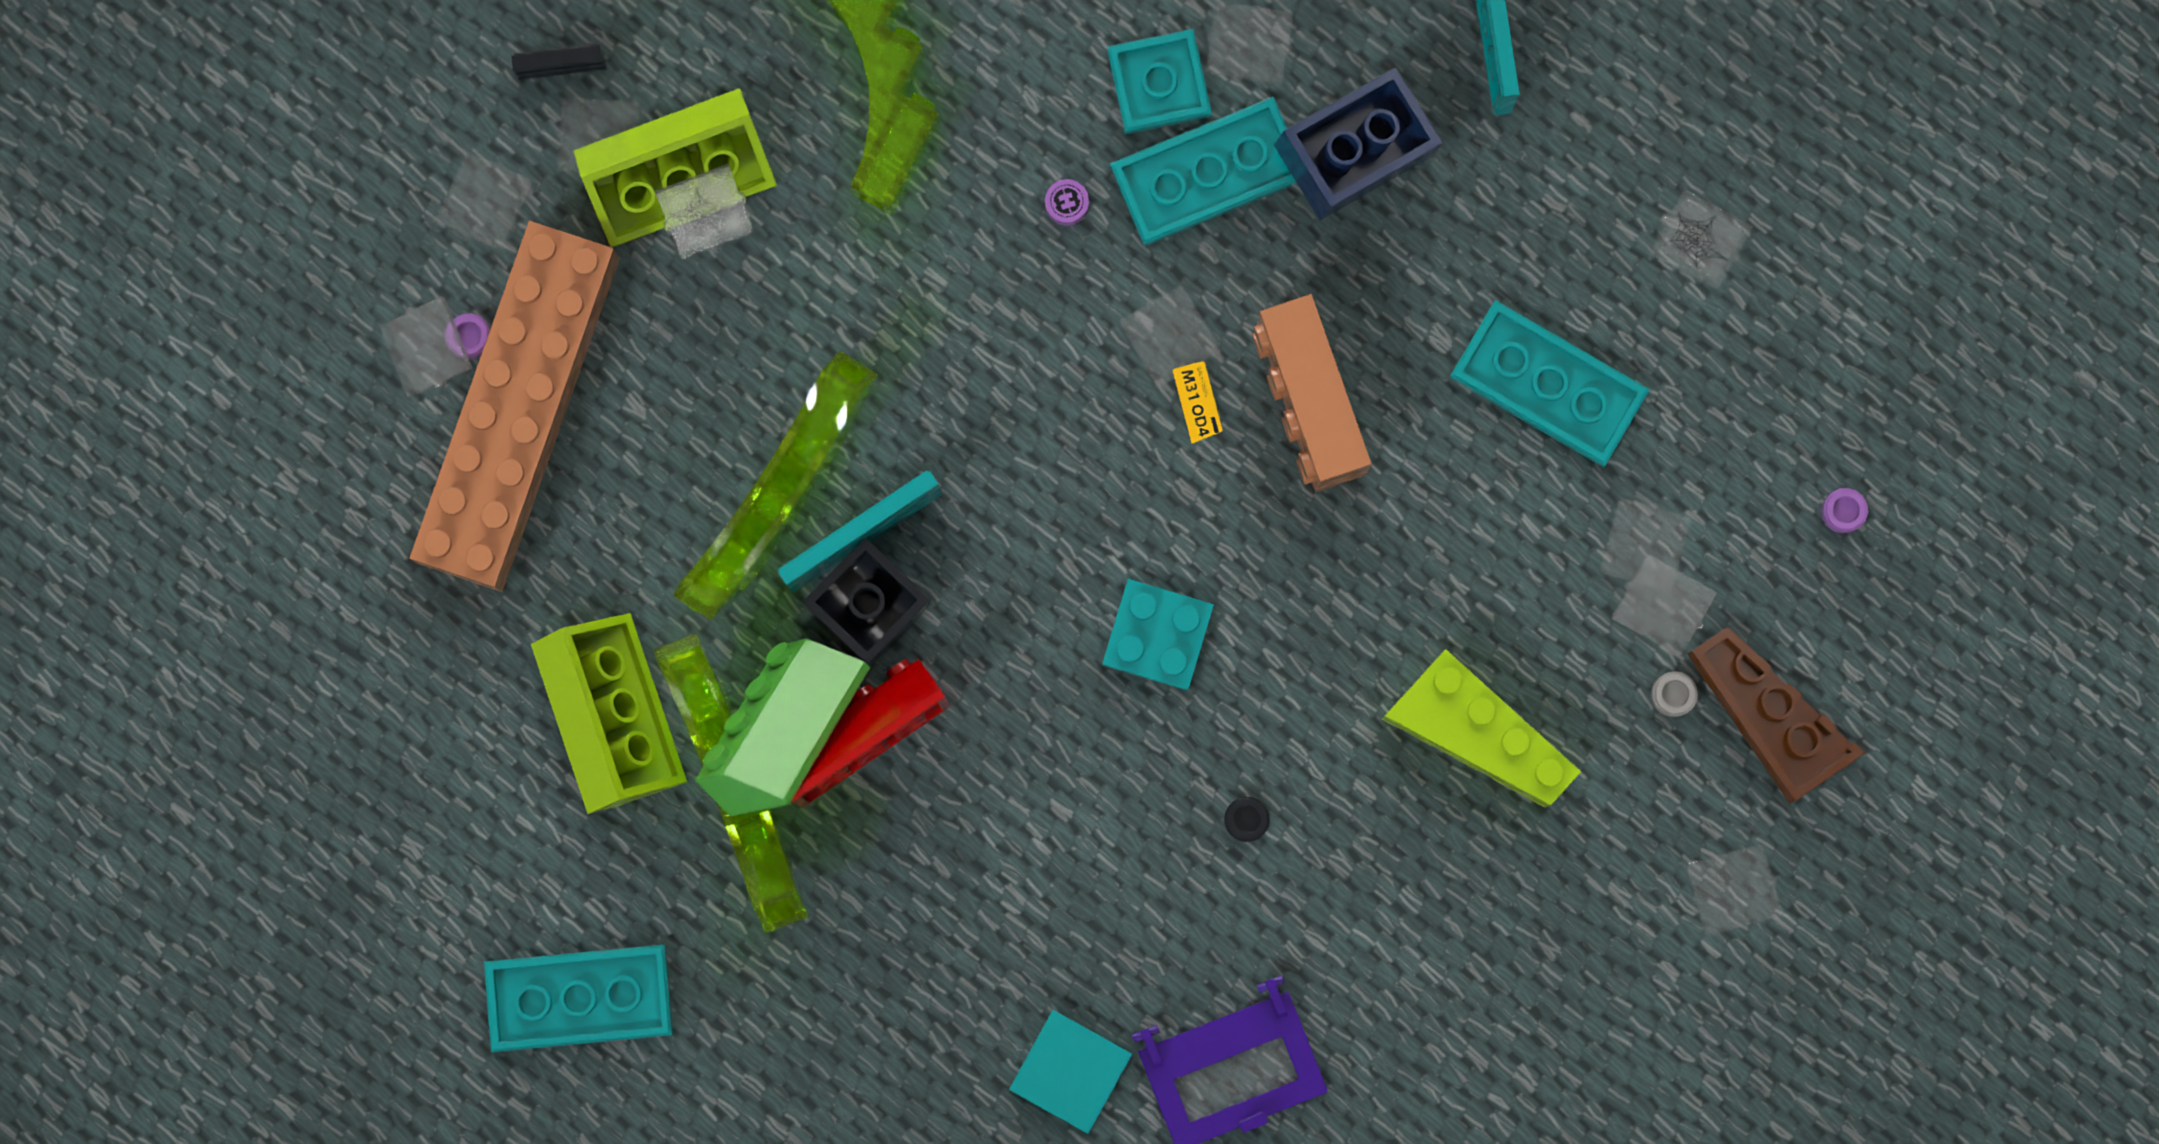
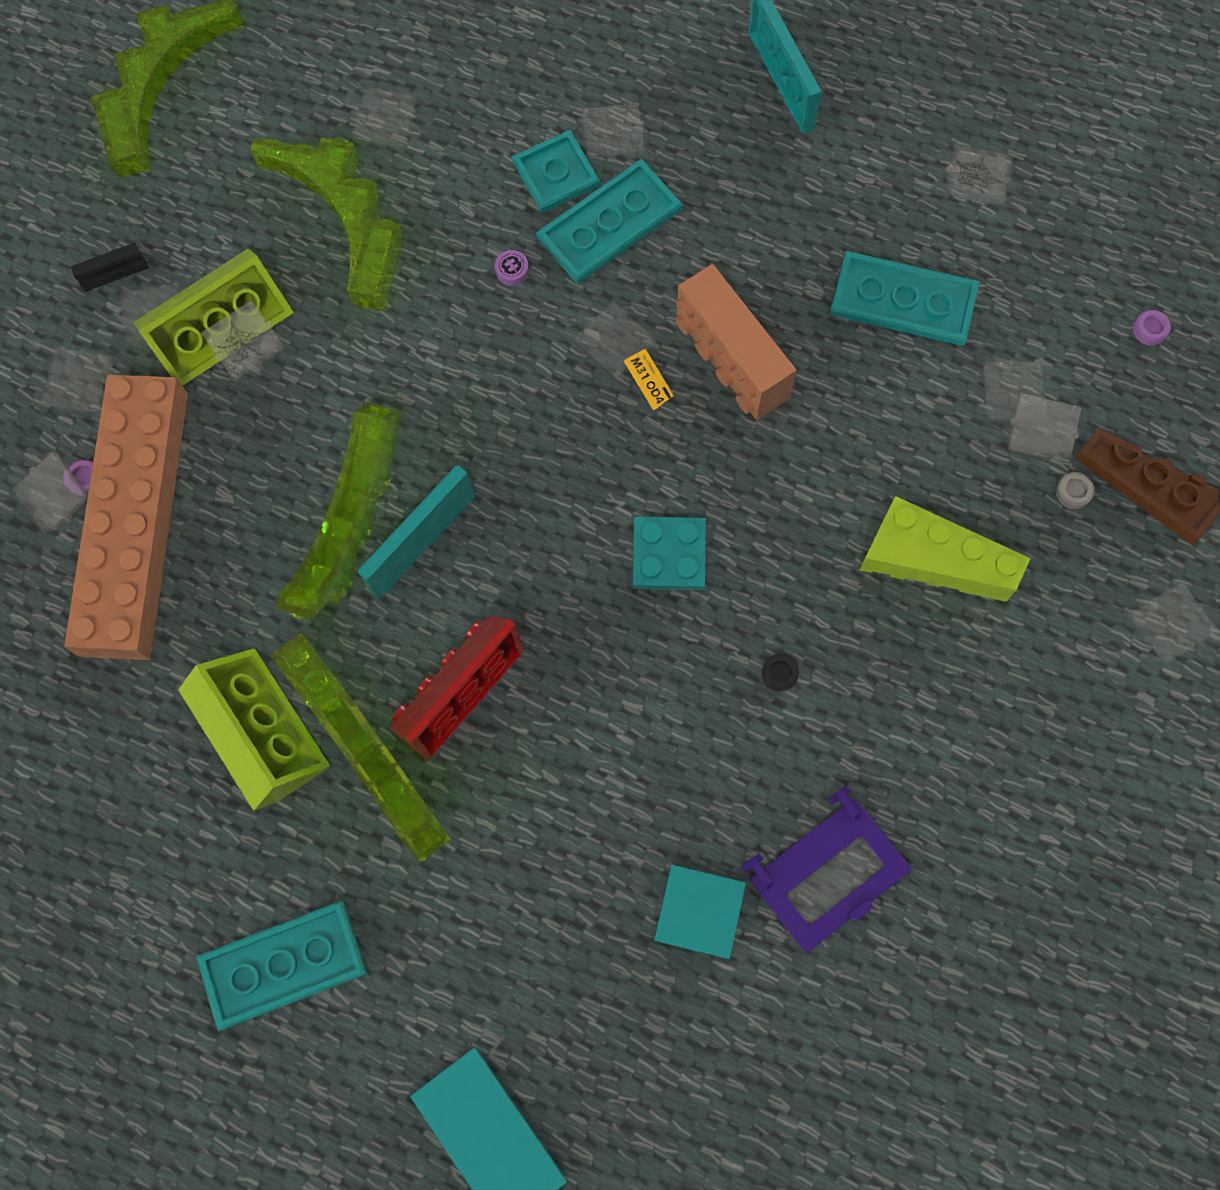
camera: 15 degrees left, 10 degrees down
(780, 726) = (388, 693): slope -> none
(867, 602) = (437, 583): black brick -> none
(1357, 143) = (712, 165): dark blue brick -> none

